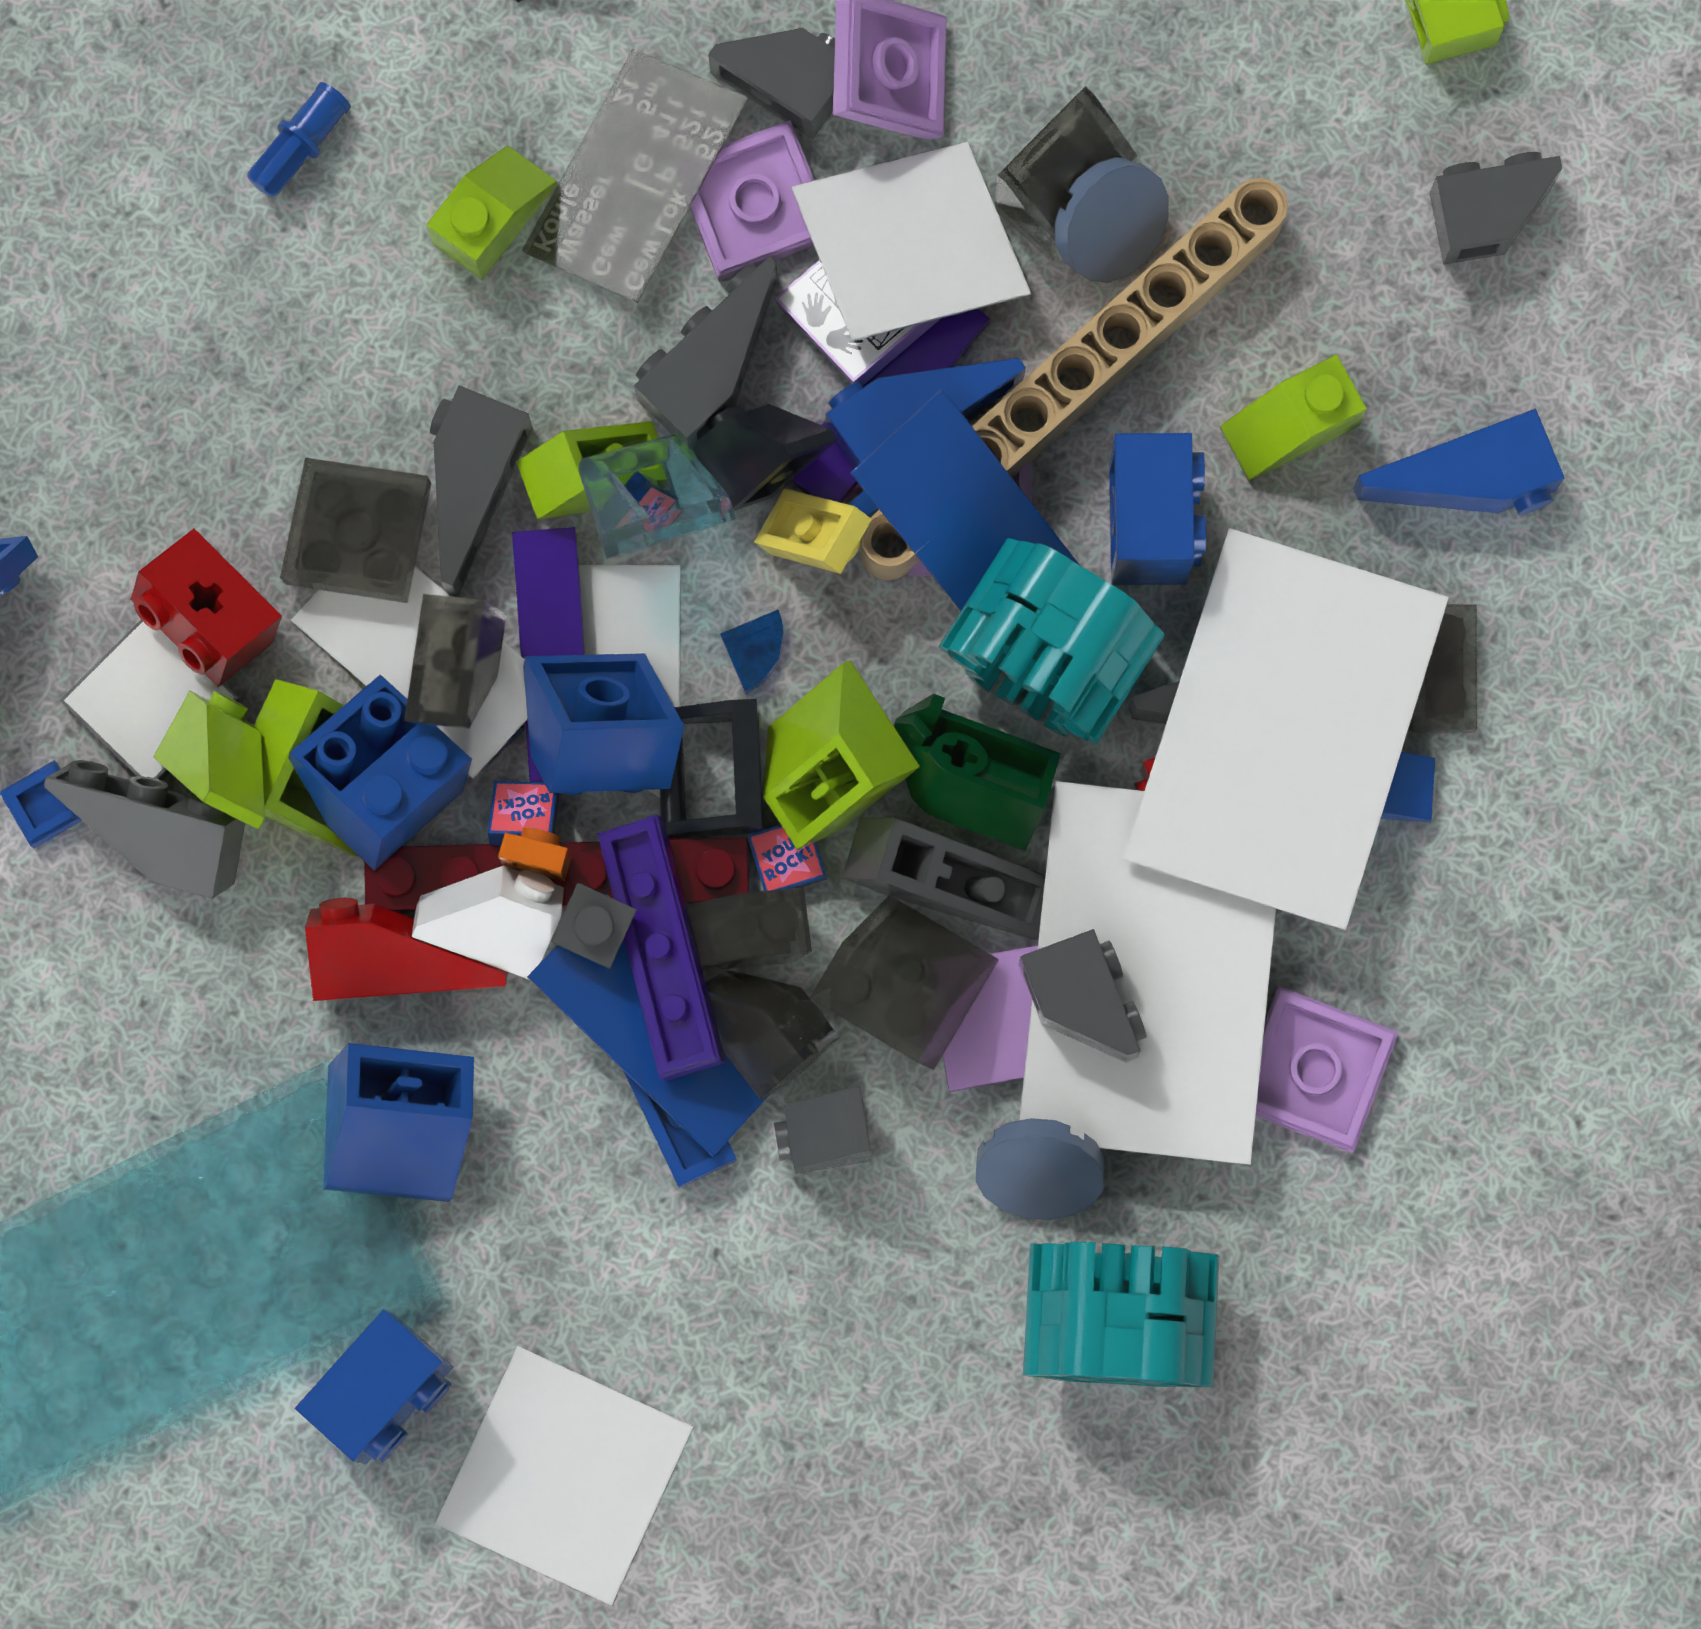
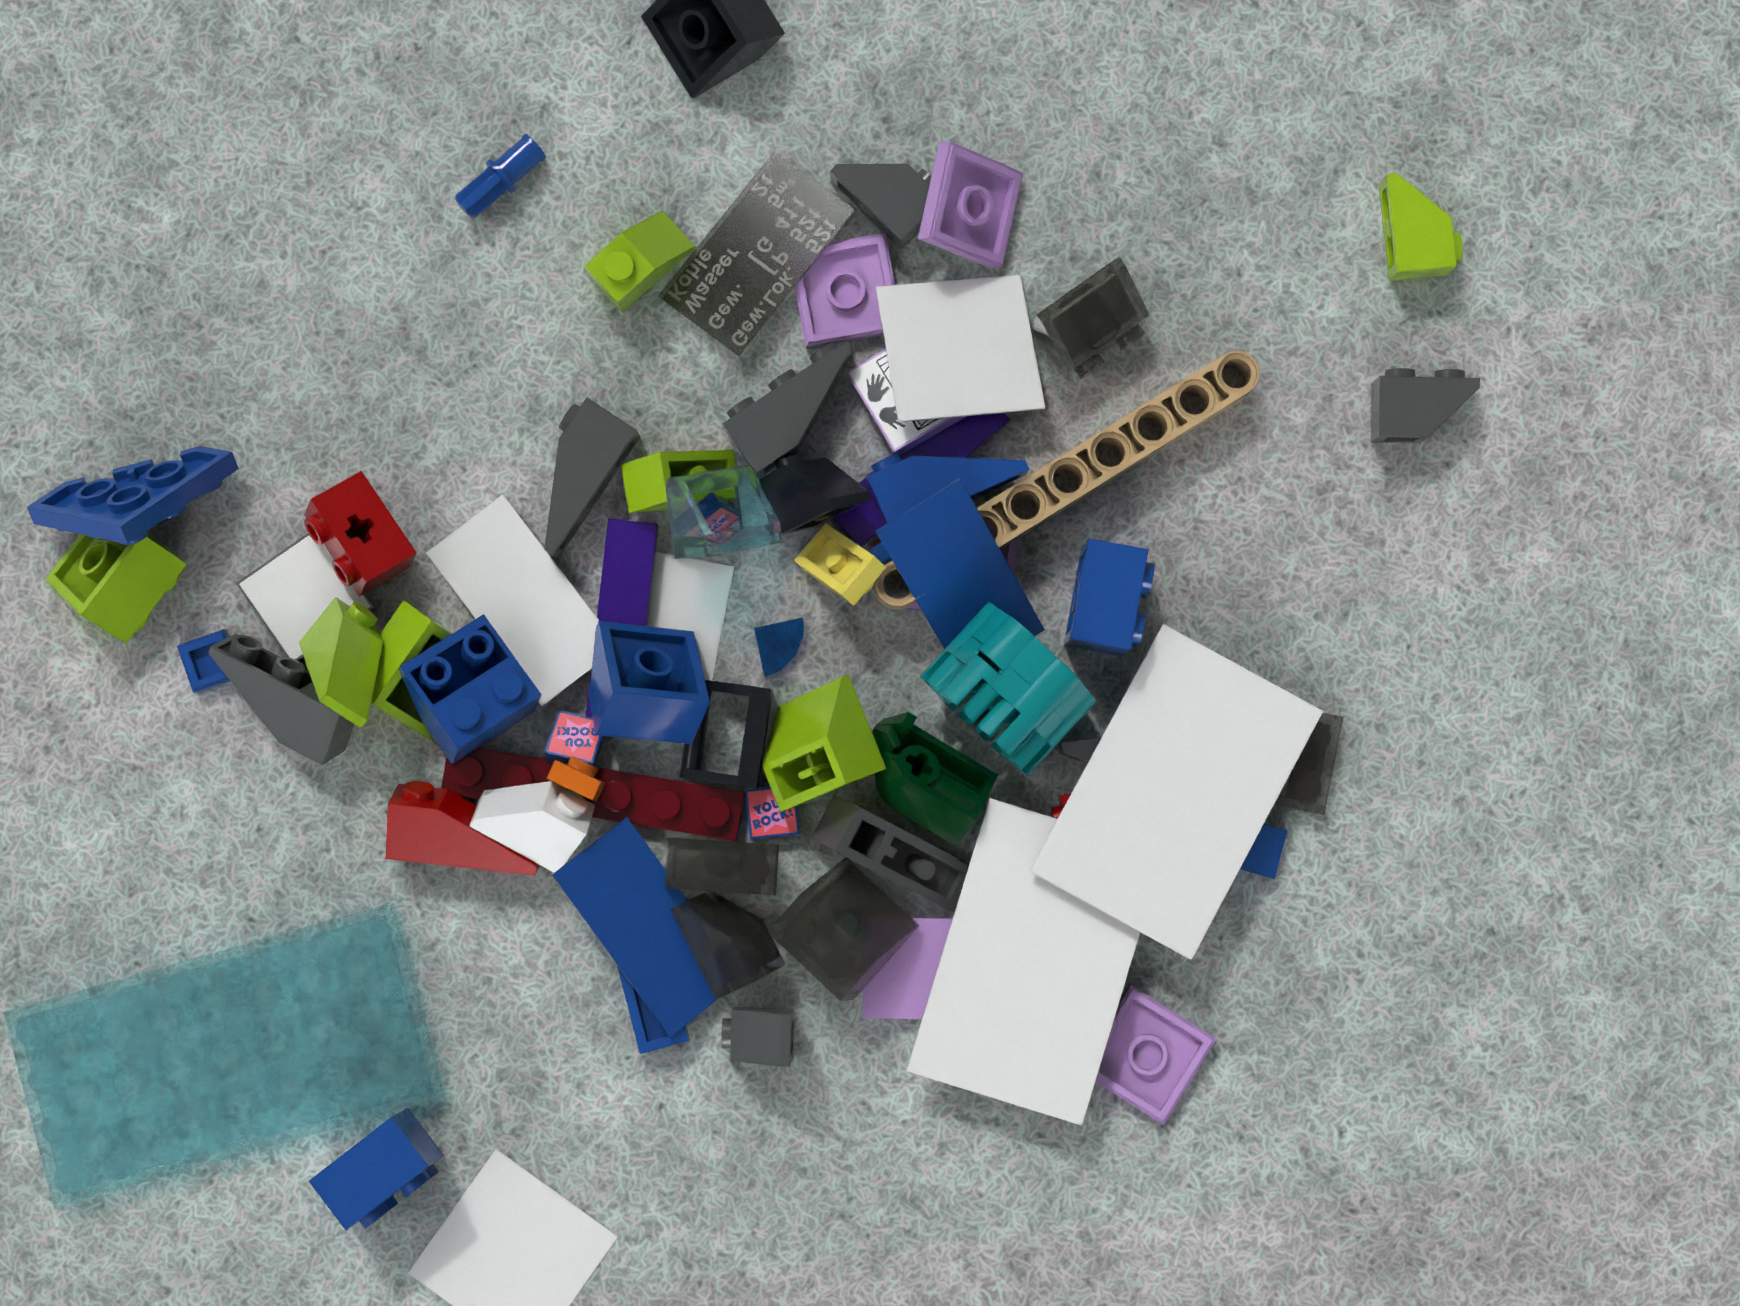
camera: 10 degrees right, 5 degrees up
(356, 530) = (487, 493): clear smoke plate -> none
(397, 1121) = (432, 966): blue slope -> none
(454, 660) = (541, 617): clear smoke slope -> none
(593, 925) = (610, 844): dark grey plate -> none
(662, 949) = (660, 869): dark purple tile -> none
(1040, 1169) = (919, 1096): sand blue tile -> none
(1078, 994) = (974, 973): dark grey slope -> none
(1112, 220) = (1119, 362): sand blue tile -> none
(1121, 1315) = (959, 1227): teal piece -> none
(1294, 418) = (1230, 544): lime slope -> none
(1479, 472) = (1370, 613): blue slope -> none

